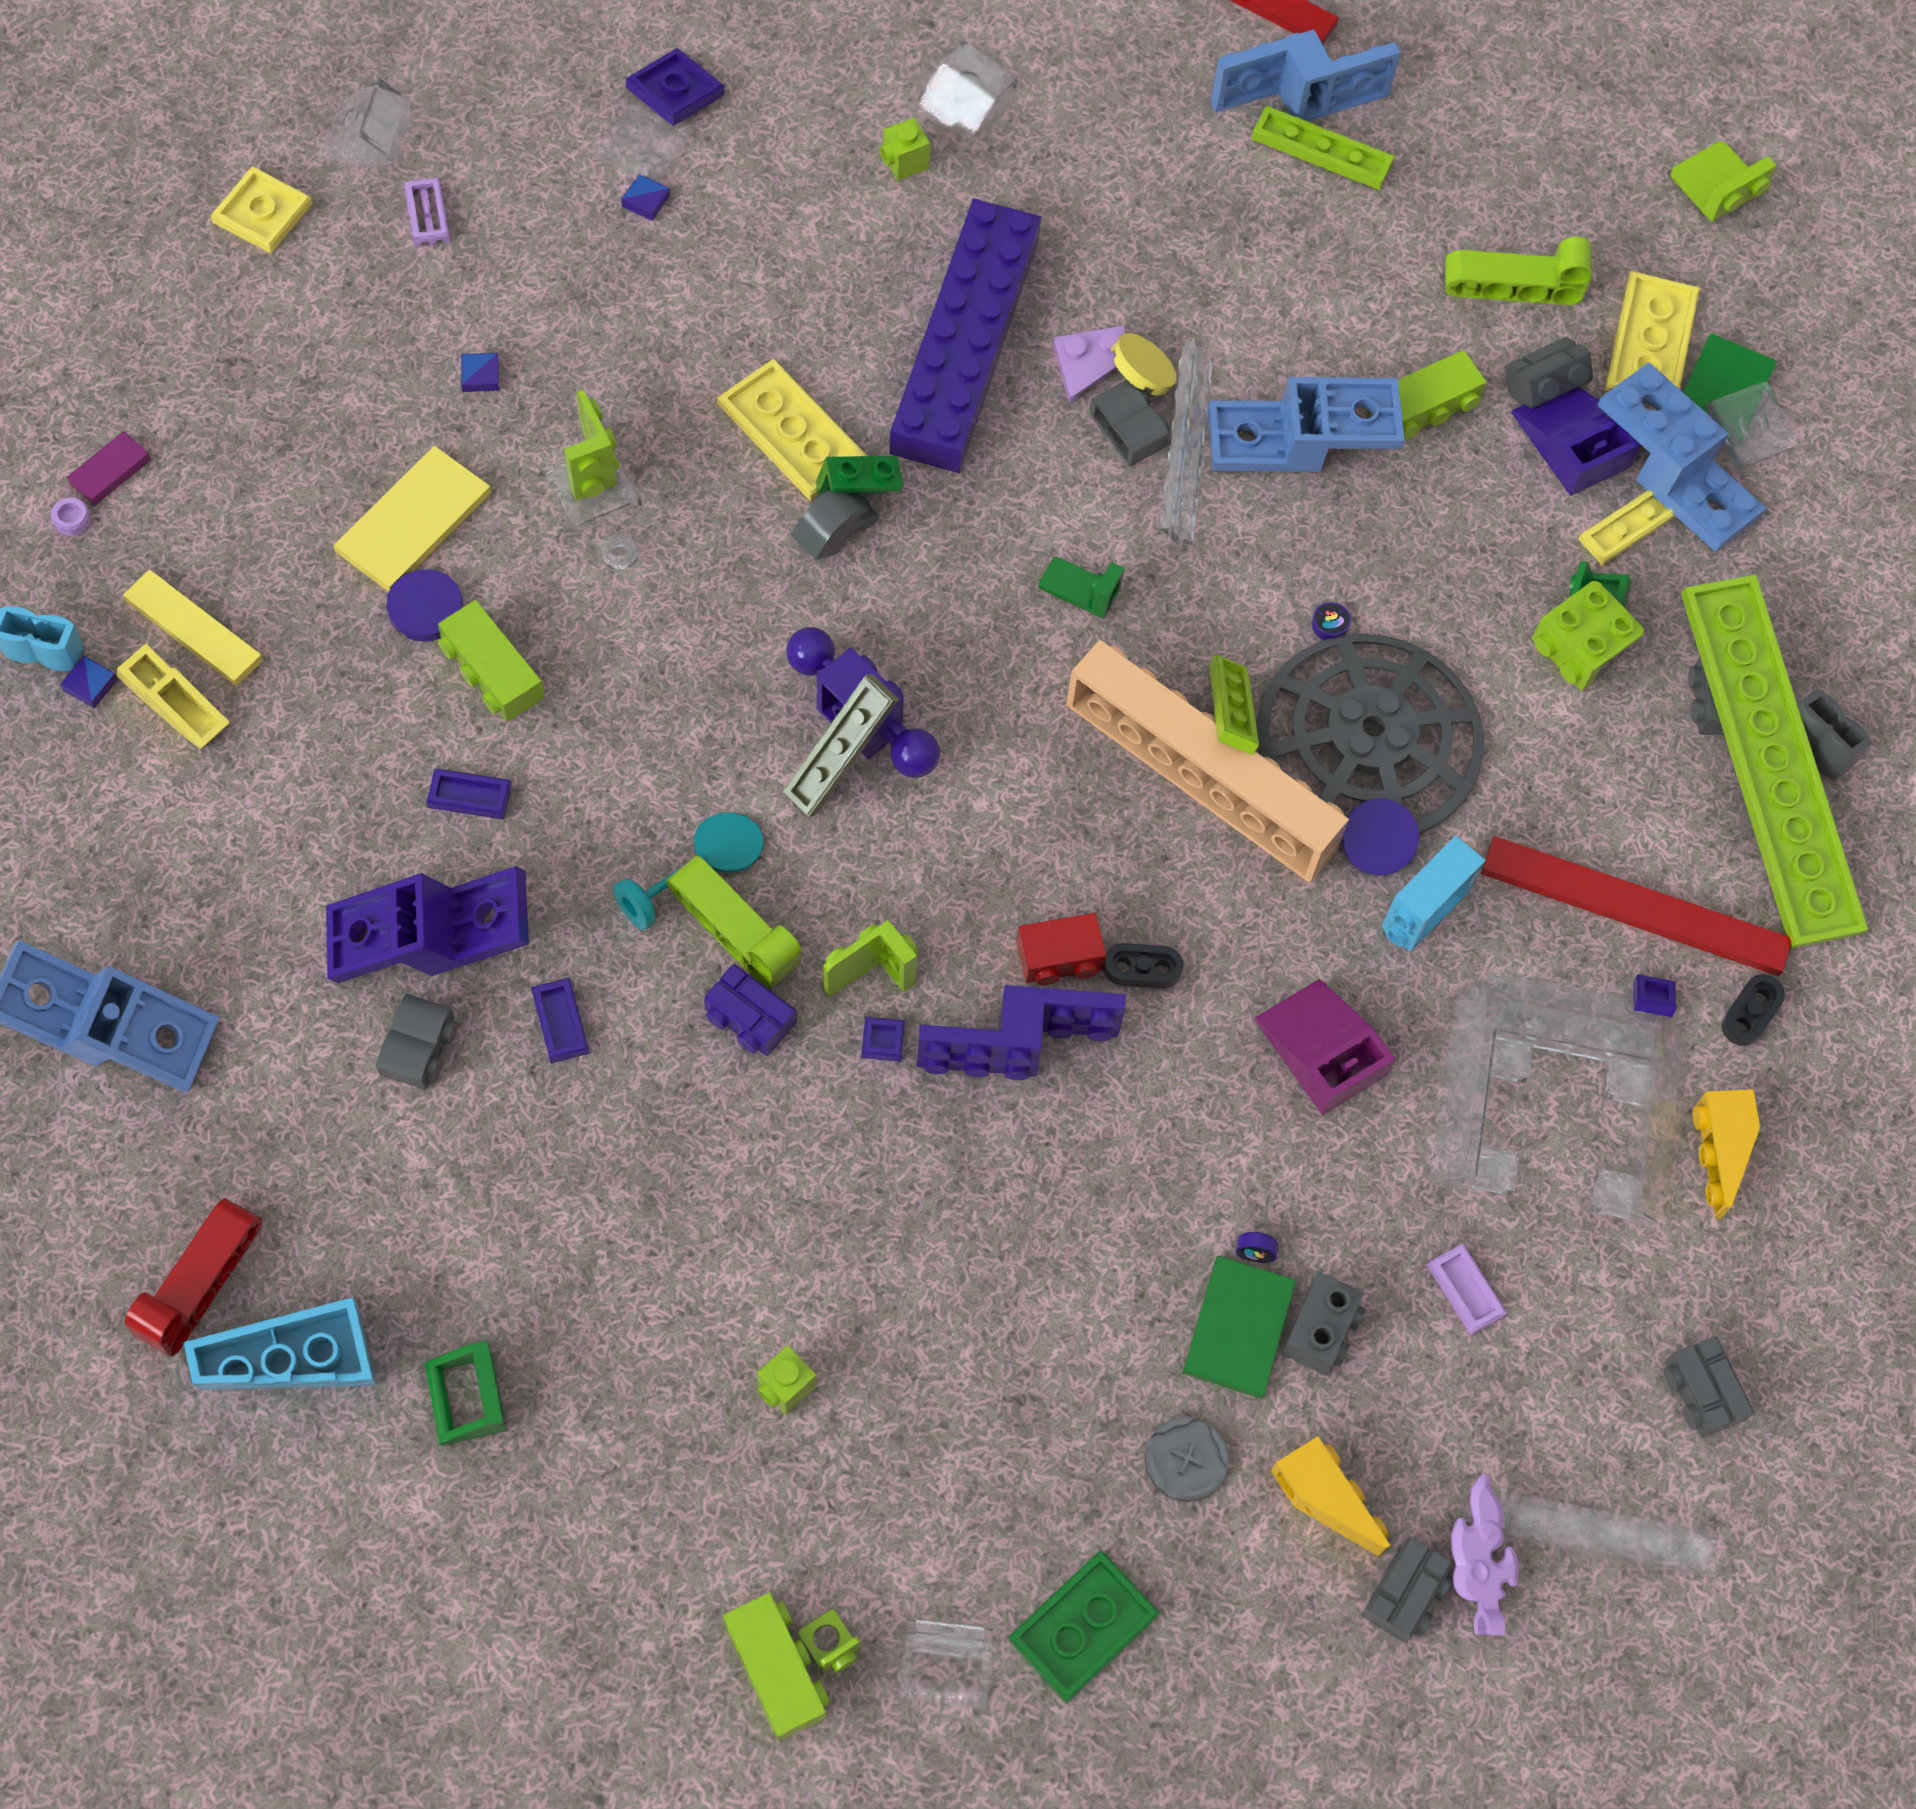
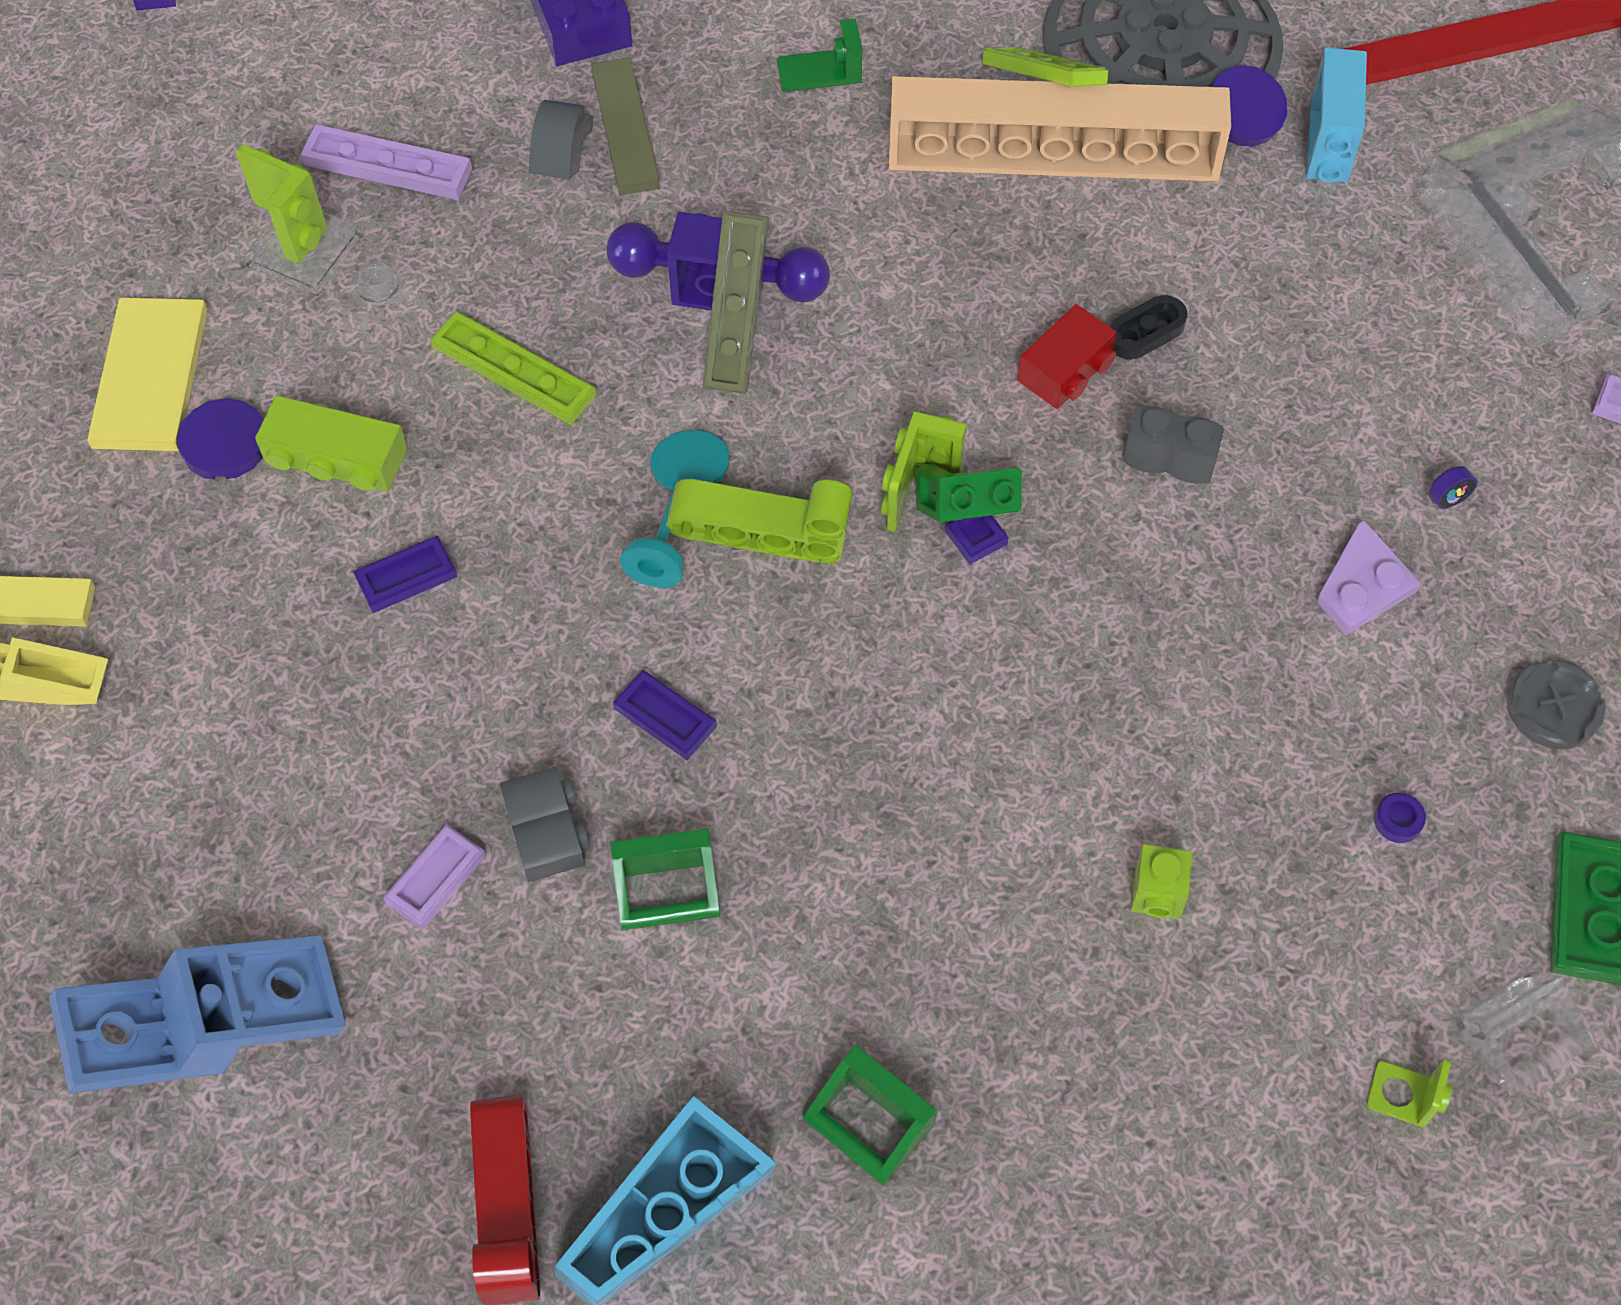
camera: 30 degrees left, 5 degrees down
(322, 1027) = (434, 877): none -> lavender tile
(427, 924) = (468, 707): dark purple bracket -> none
(474, 1118) = (663, 854): none -> green tile
(480, 372) = (112, 214): dark purple tile -> none
(663, 684) = (513, 367): none -> lime tile
(700, 457) = (386, 162): none -> lavender plate
(749, 1010) = (839, 586): dark purple brick -> none
(776, 1665) = (1384, 1150): lime brick -> none
(787, 425) = (451, 95): light yellow tile -> none
(860, 474) = (555, 81): green bracket -> none
(892, 1006) = (967, 494): none -> green bracket
(897, 539) = (625, 126): none -> olive tile
(998, 1457) = (1399, 817): none -> dark purple tile
(1018, 1042) = (1099, 441): dark purple bracket -> none
(1084, 1077) = (1173, 444): none -> dark grey brick
(1130, 1271) = (1365, 581): none -> lavender wing
(1239, 1327) = (1495, 564): green tile -> none
(1323, 1324) = (1564, 511): dark grey brick -> none
(1326, 1045) = (1357, 288): magenta slope -> none
(1654, 995) = (1568, 90): dark purple tile -> none

